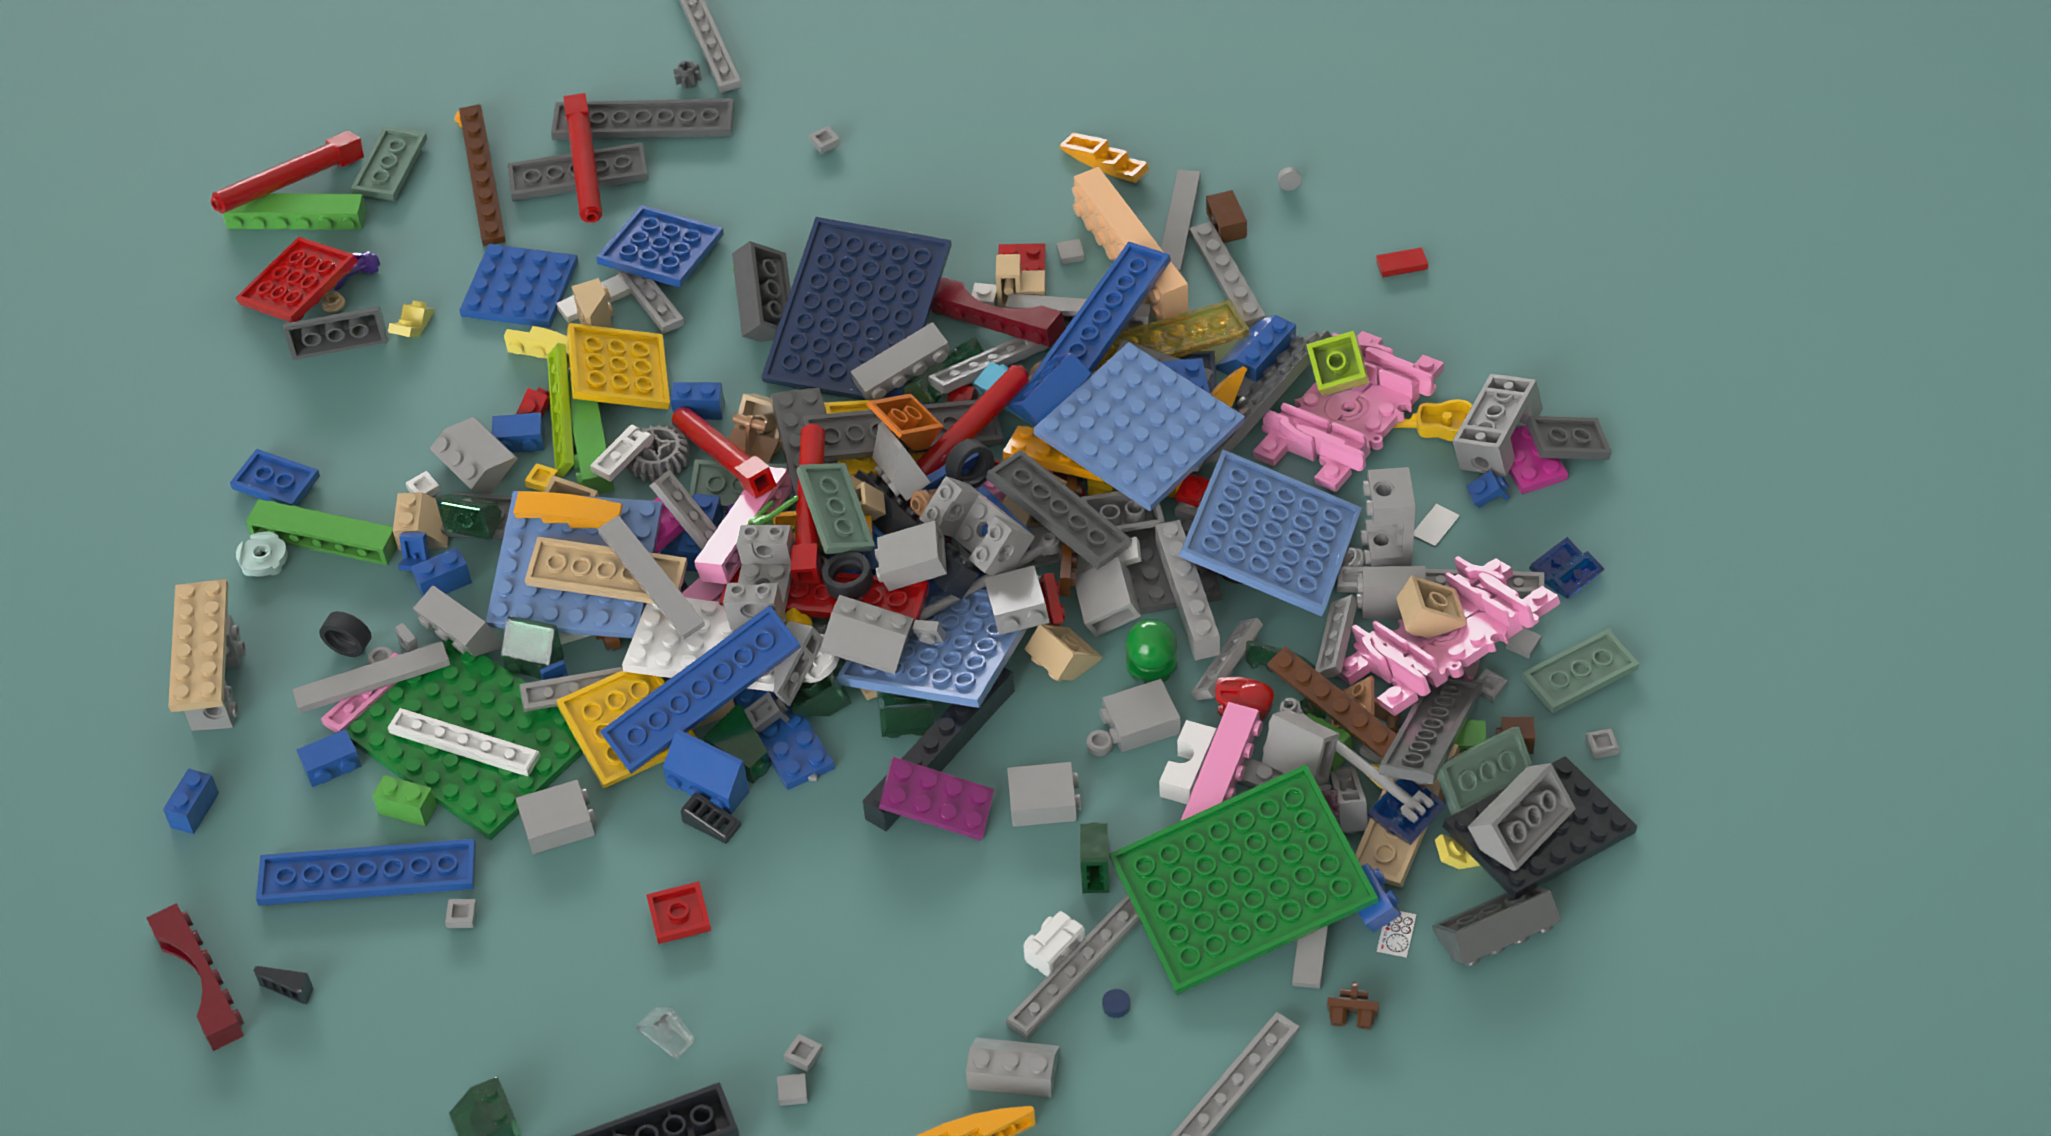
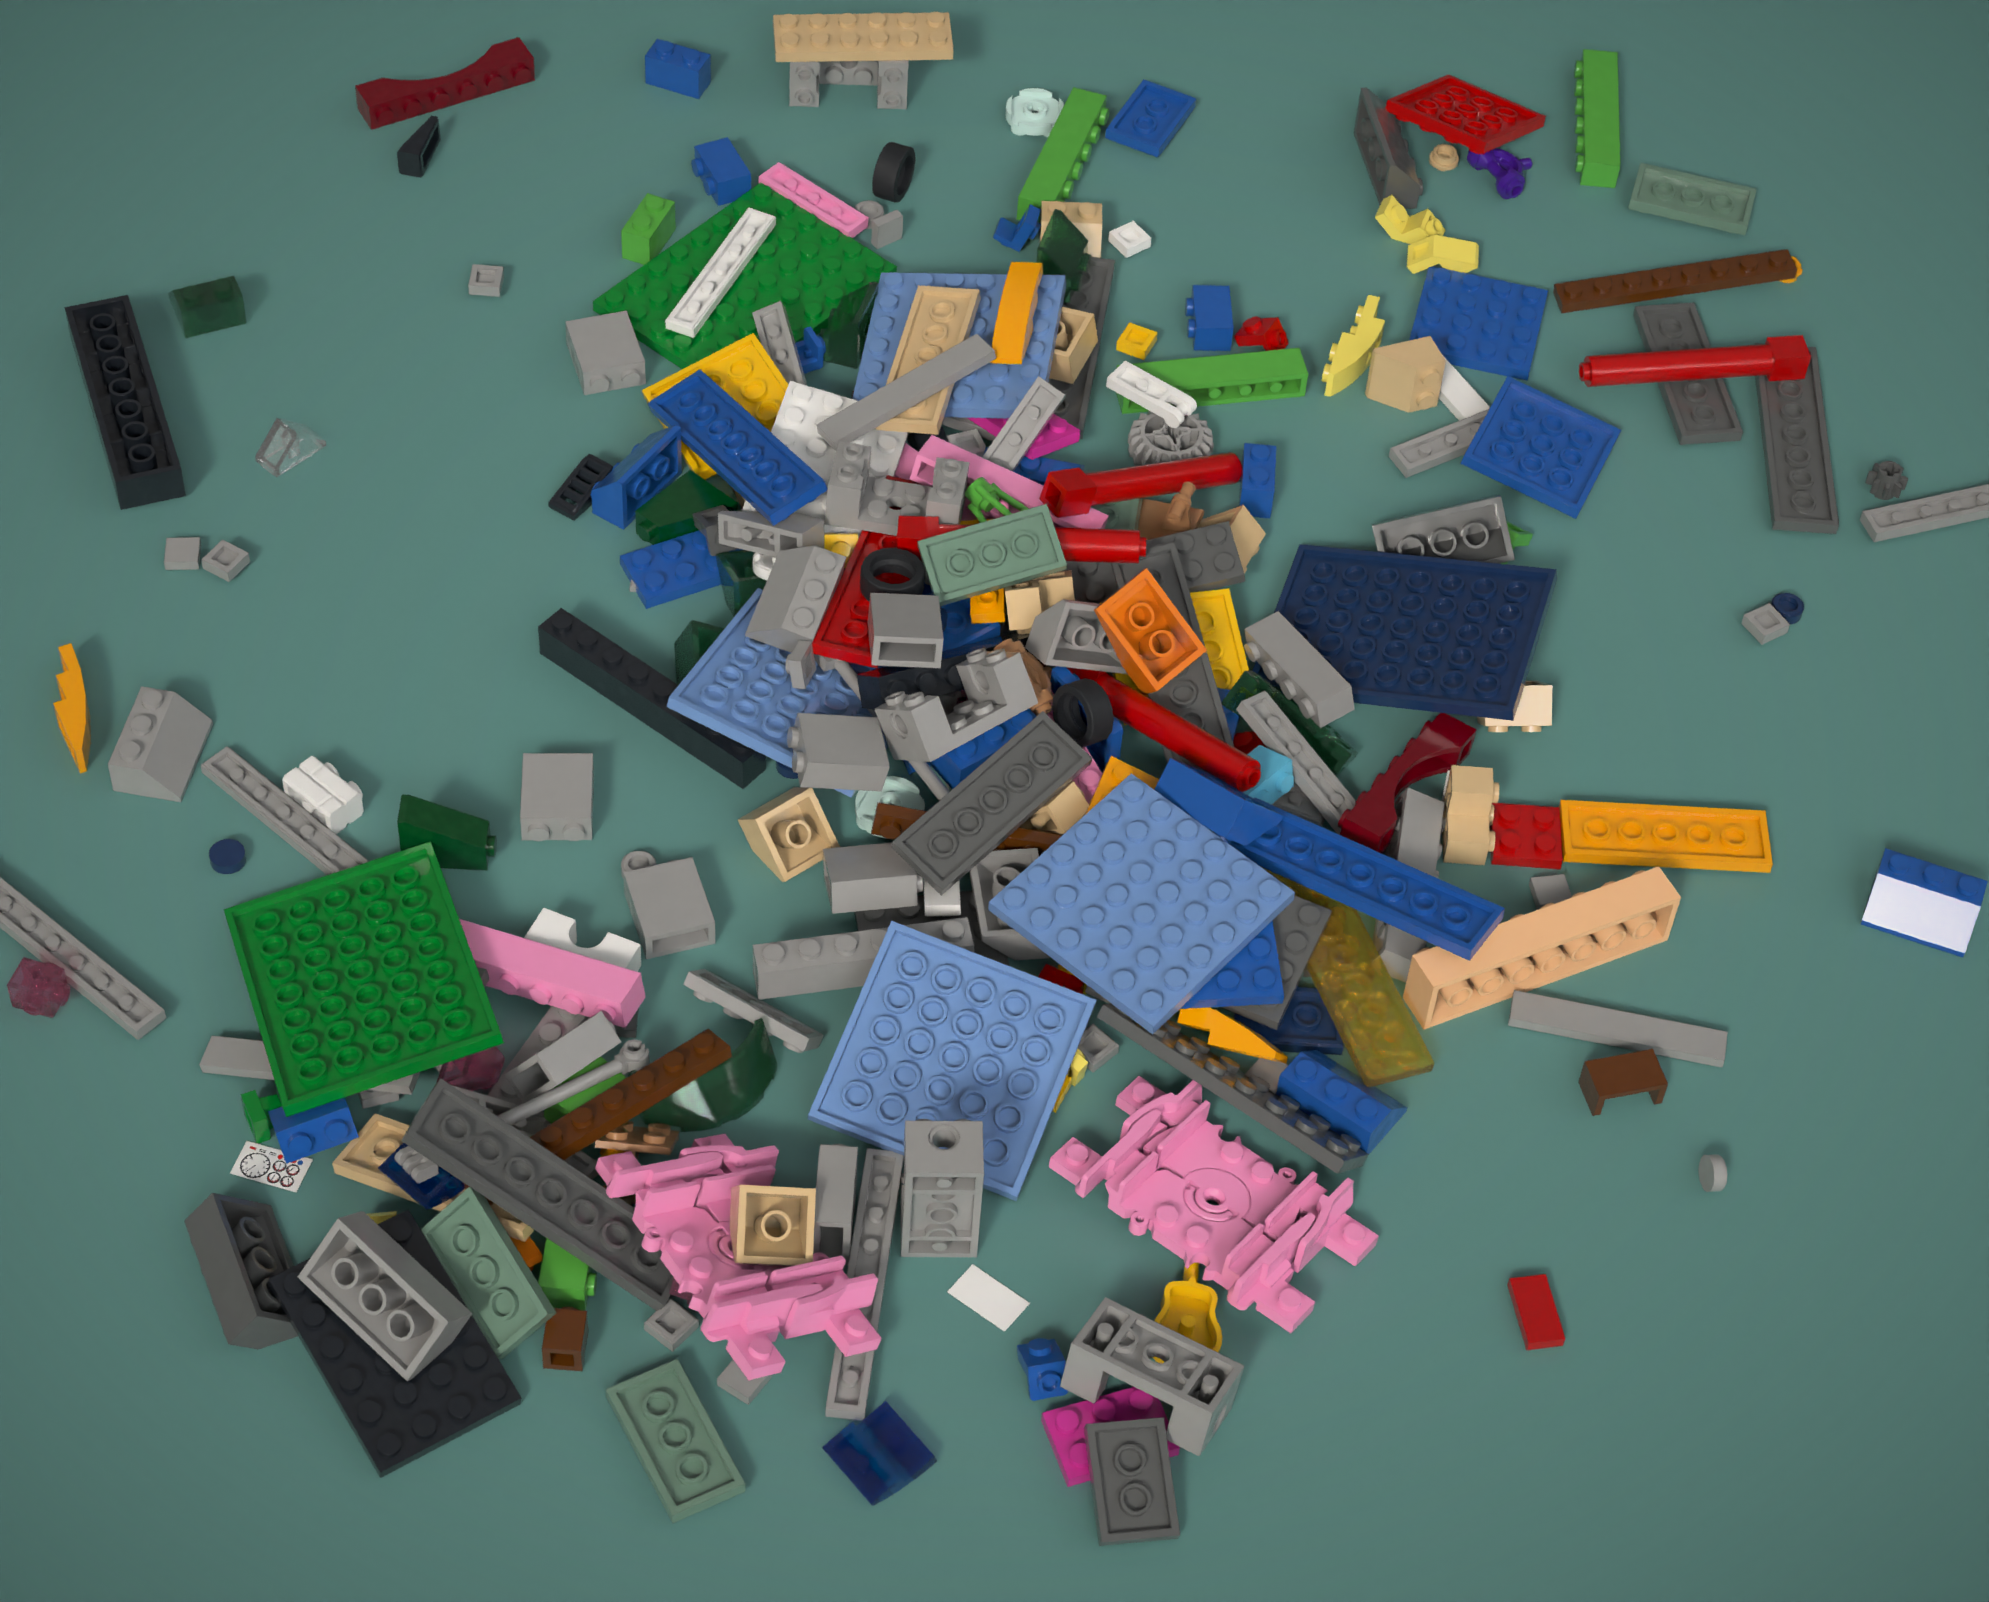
camera: 85 degrees right, 0 degrees up
(339, 151) = (1704, 149): red brick -> none
(366, 872) = (559, 208): blue plate -> none
(370, 677) = (828, 196): light grey tile -> none
(443, 571) = (981, 248): blue brick -> none
(450, 300) = (1448, 252): none -> light yellow slope
(456, 623) = (900, 247): light grey slope -> none
(474, 455) = (1163, 269): light grey slope -> none
(560, 409) = (1275, 341): lime tile -> none
(618, 366) = (1311, 396): yellow plate -> none
(678, 912) = (448, 457): red plate -> none
(803, 131) = (1788, 606): none -> dark blue tile
(936, 798) = (555, 681): magenta plate -> none
(1018, 193) = (1665, 836): none -> light orange plate
(1051, 591) = (851, 814): red plate -> none
(1064, 76) = (1924, 902): none -> slope
(1097, 153) = (1749, 943): light orange slope -> none
(1151, 651) = (767, 912): green tile -> none
(1226, 272) = (1499, 1081): light grey plate -> none
(1244, 692) = (669, 1011): red helmet -> none
(1269, 1095) = (38, 987): none -> clear pink brick
(1336, 637) = (755, 1131): light grey plate -> none
(1338, 363) = (1266, 1162): lime brick -> none
(1341, 1006) = (156, 1092): reddish brown hips -> none
(1362, 937) = (257, 1114): none -> green tile
(1602, 743) = (542, 1454): light grey tile -> none

